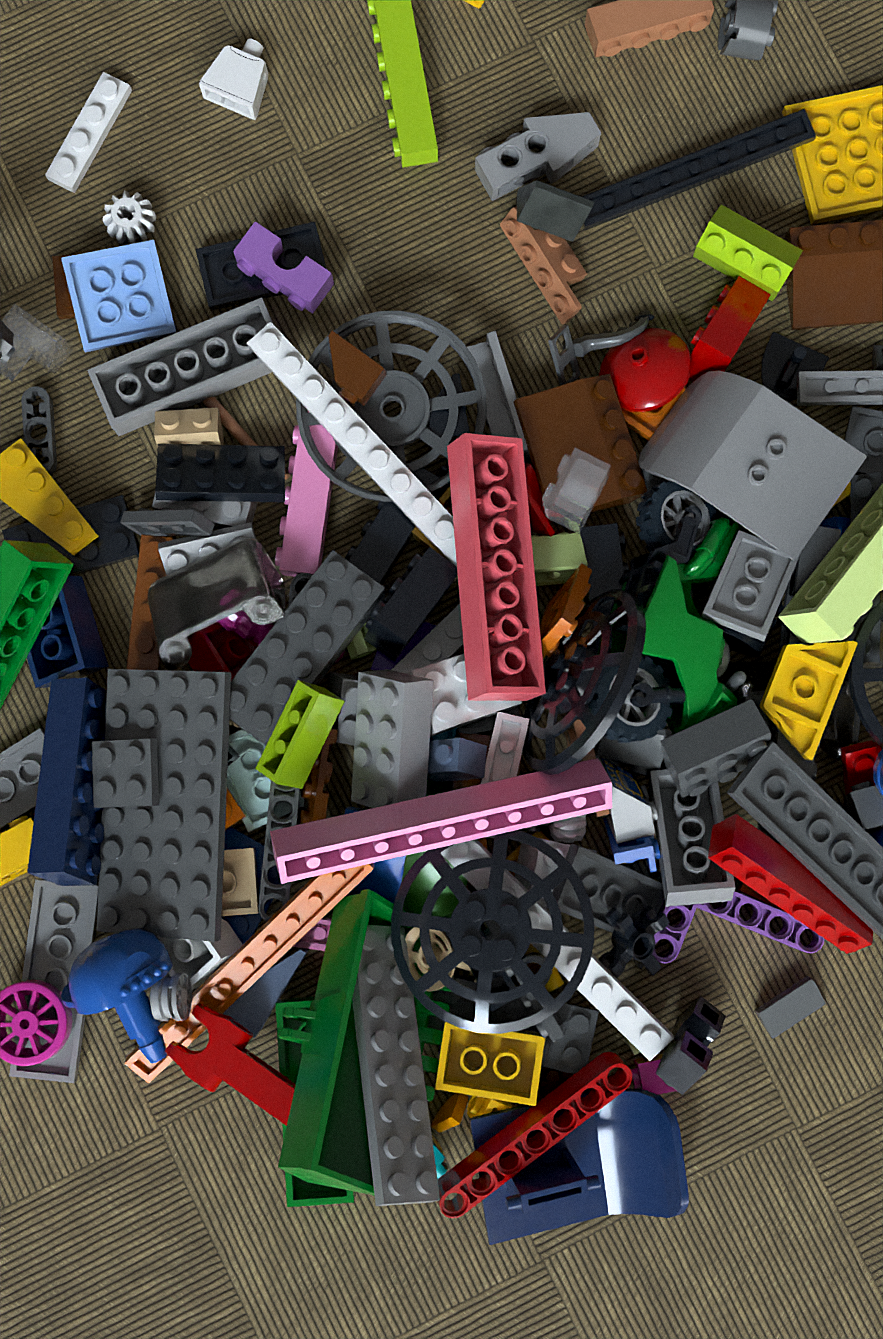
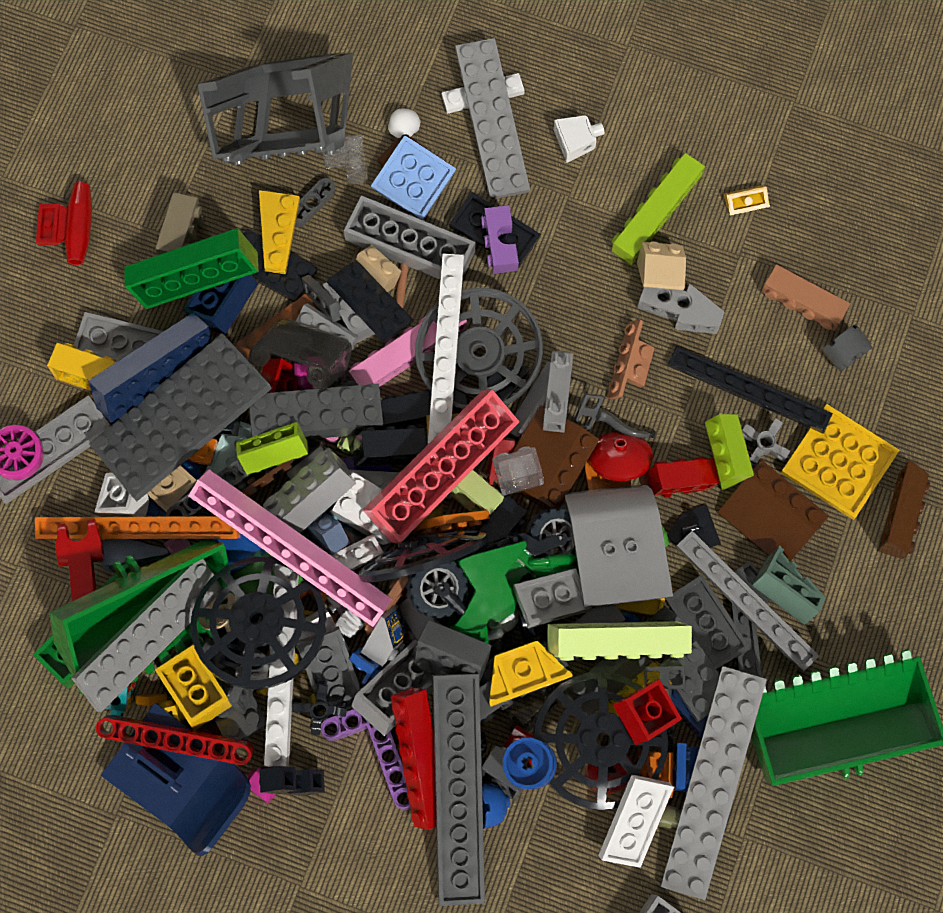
camera: 45 degrees right, 10 degrees down
(41, 247) = (403, 122): none -> white hair
(116, 975) = (77, 466): blue piece -> none
(125, 773) = (178, 384): dark grey plate -> none
(126, 207) = (457, 141): white gear -> none
(129, 147) = (492, 119): none -> light grey plate
(171, 998) = (86, 503): light grey wheel -> none
(354, 371) = (476, 314): reddish brown slope -> none
(477, 127) = (662, 265): none -> tan slope
(521, 366) = (558, 391): none -> light grey brick
(552, 209) = (654, 338): pearl dark grey slope -> none
(772, 199) = (778, 451): none -> light grey pin
(790, 1006) = (360, 825): dark grey slope -> none

